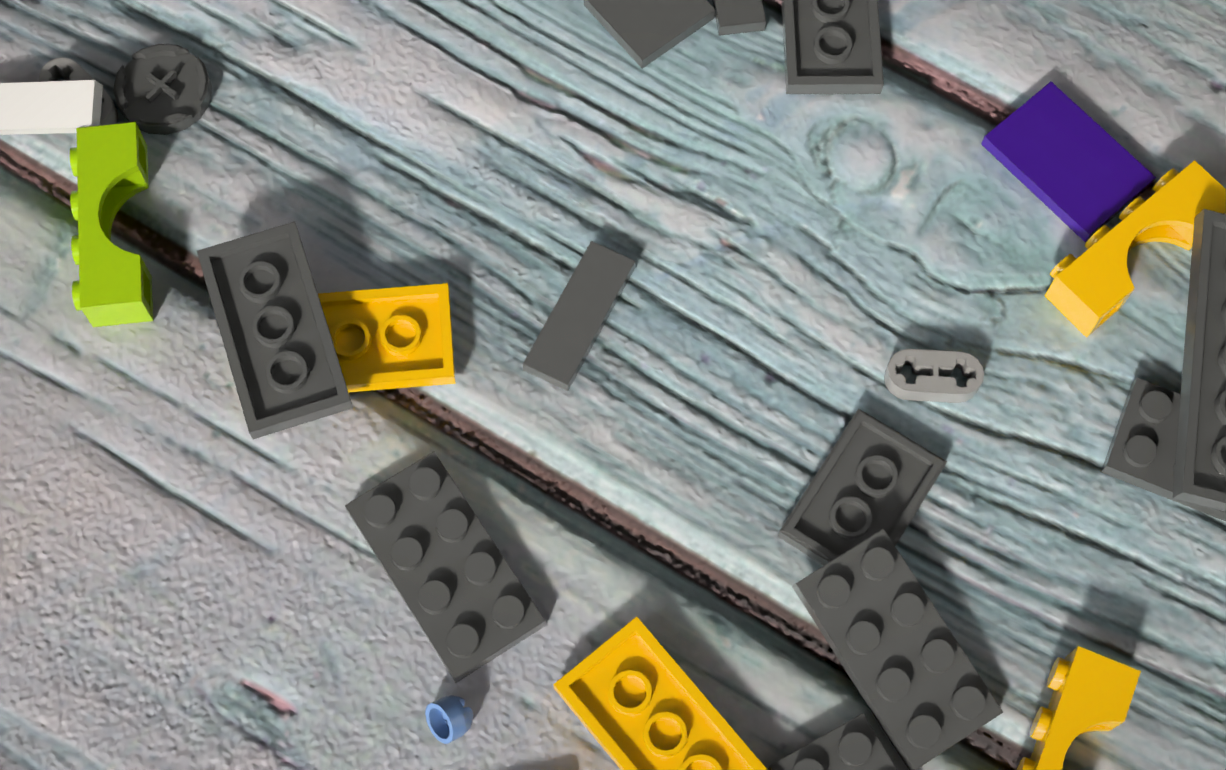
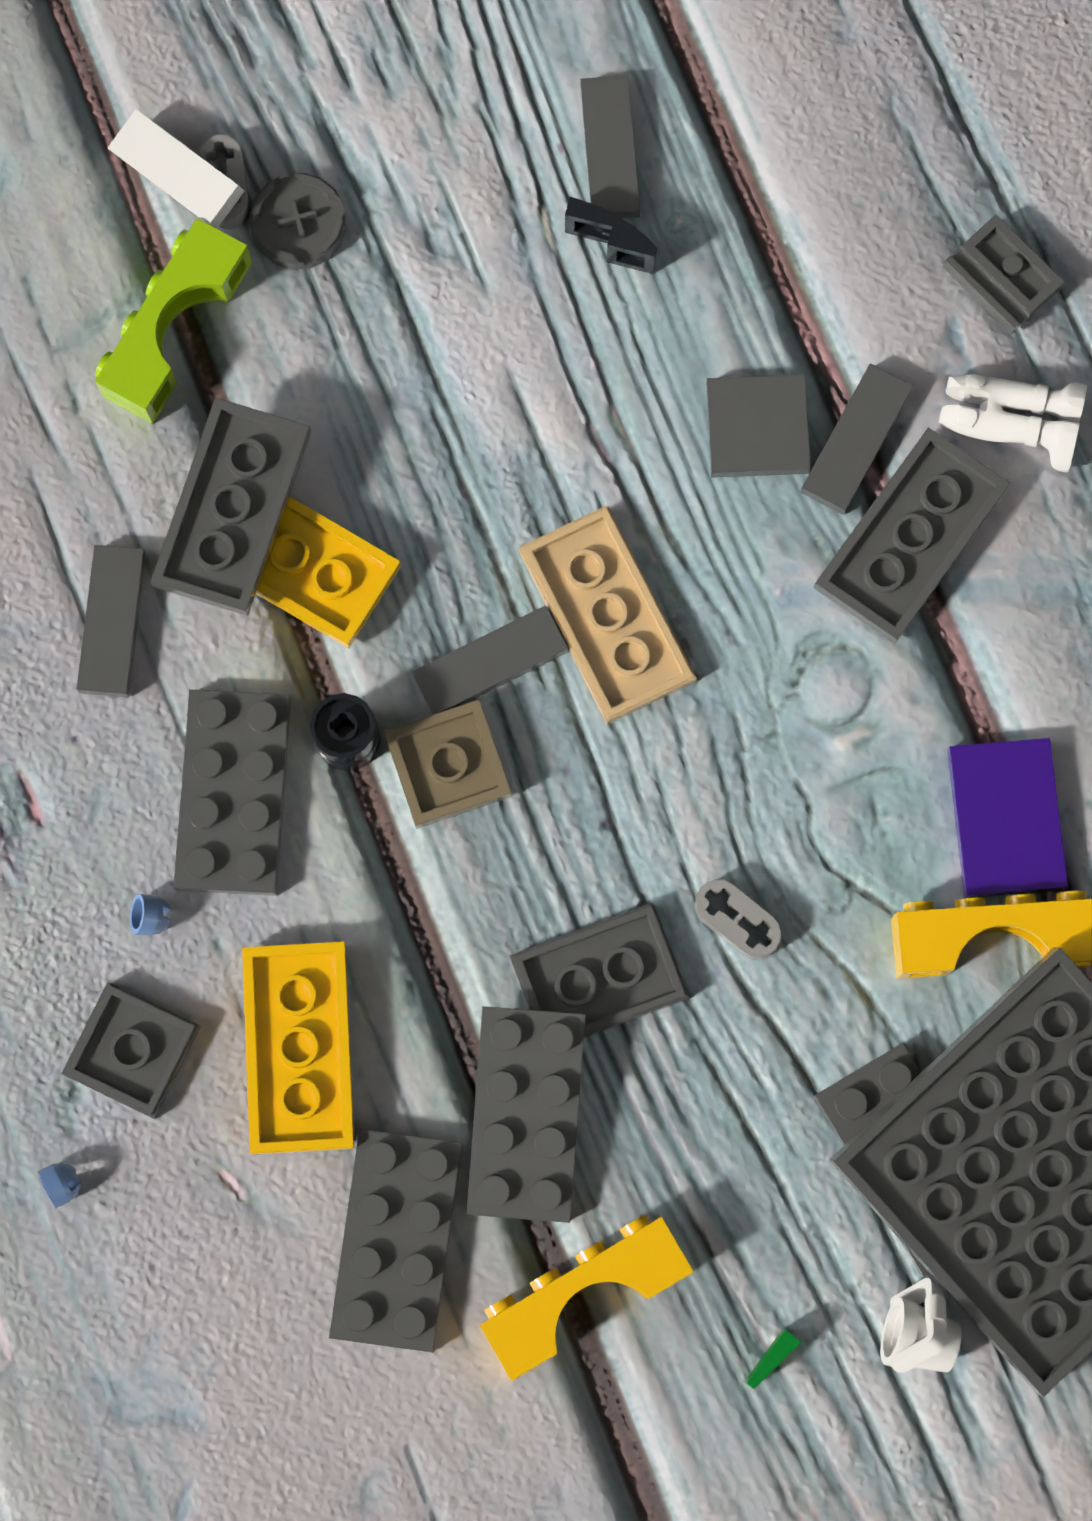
camera: 40 degrees right, 10 degrees up
(233, 498) = (111, 621): none -> dark grey tile
(510, 456) = (345, 731): none -> black wheel
(609, 415) = (447, 764): none -> dark tan plate
(644, 216) = (607, 615): none -> tan tile

